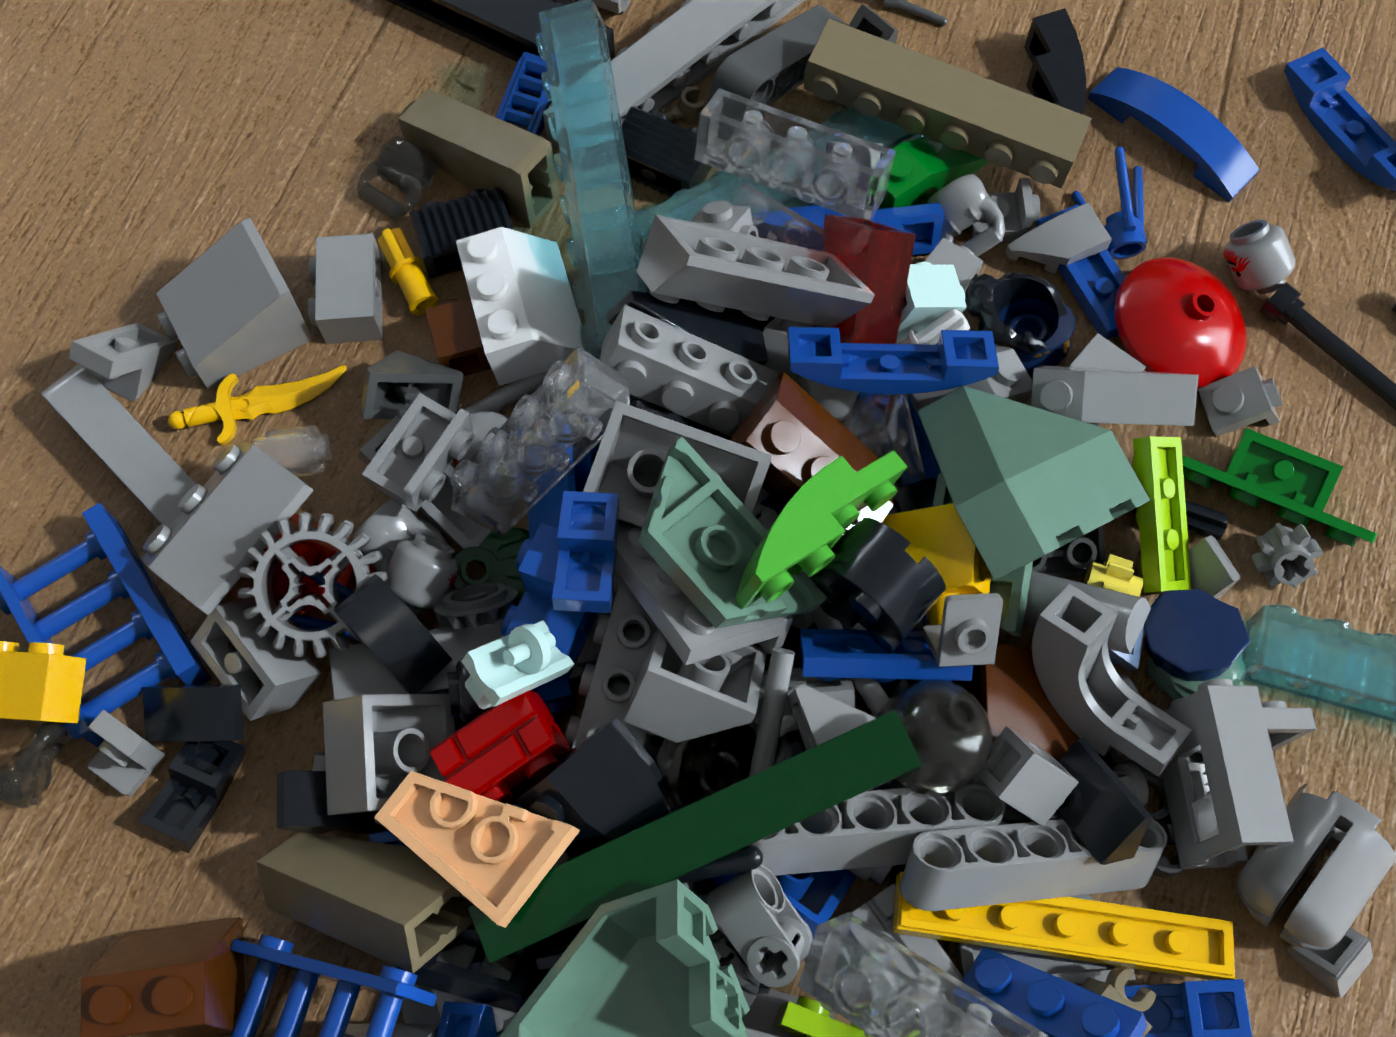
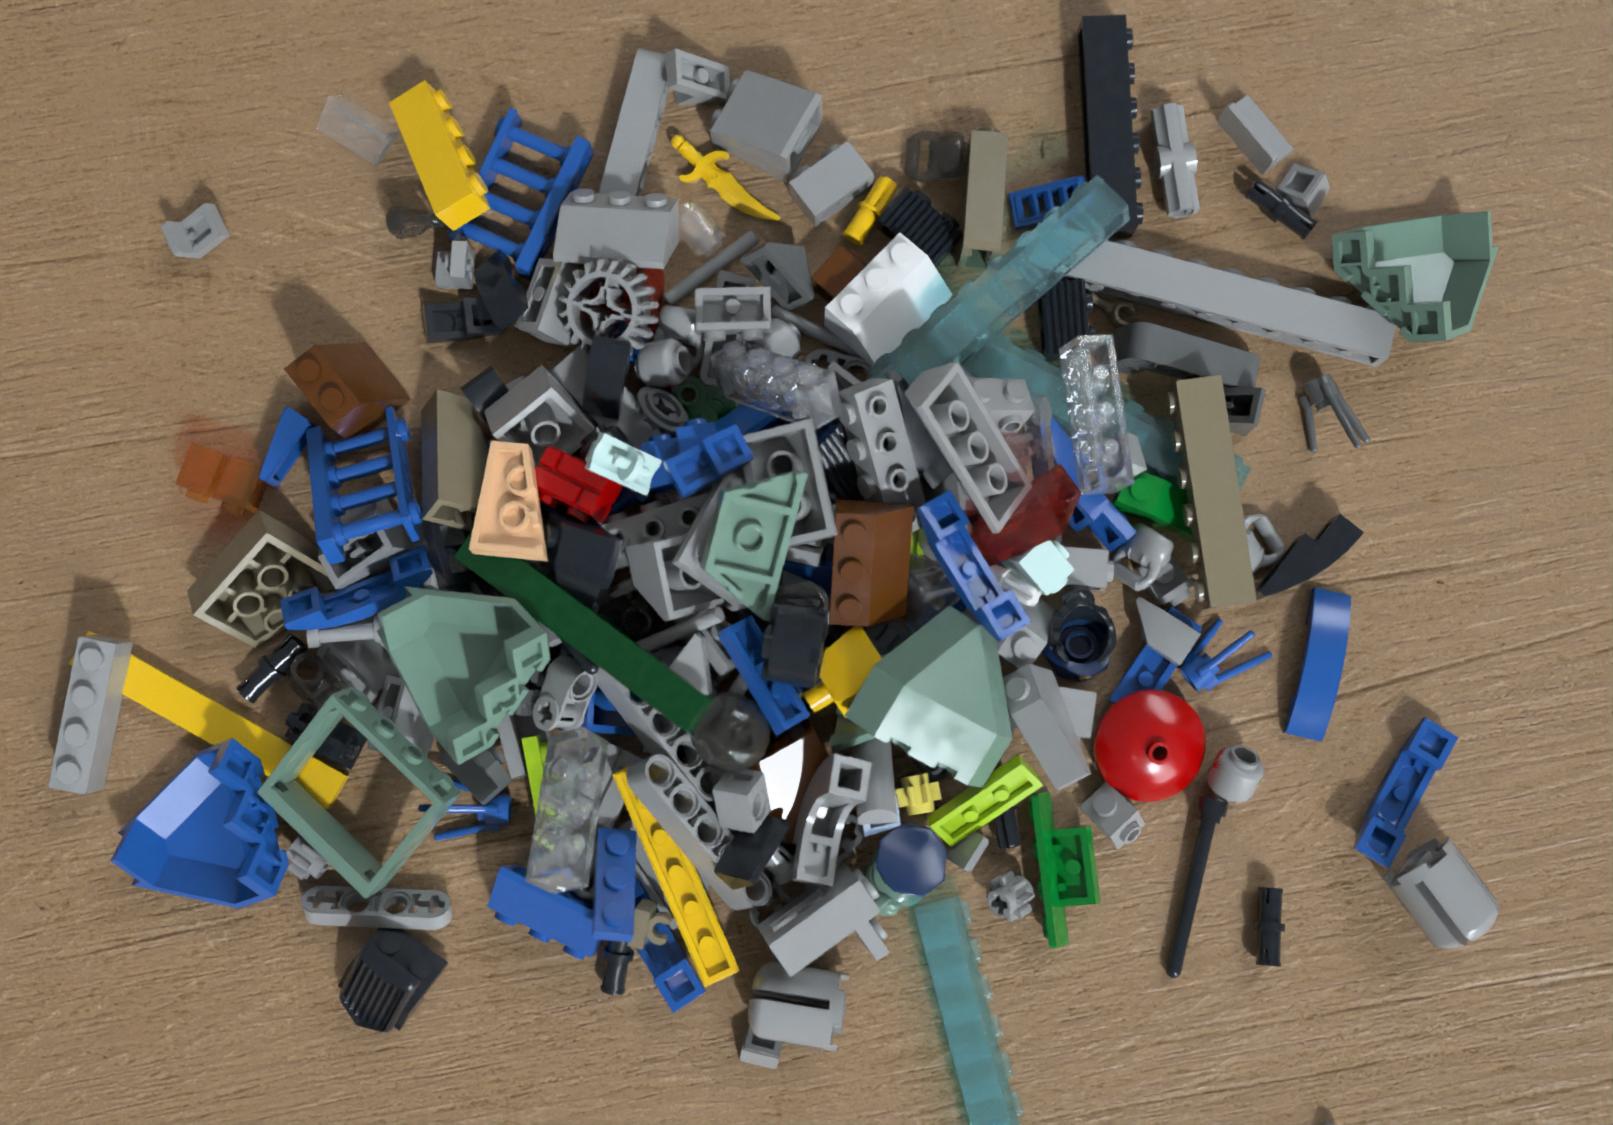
camera: 60 degrees right, 15 degrees up
(346, 463) = (710, 268): none -> light grey bar
(814, 523) = (790, 582): bright green slope -> none
(967, 630) = (795, 715): light grey bracket -> none

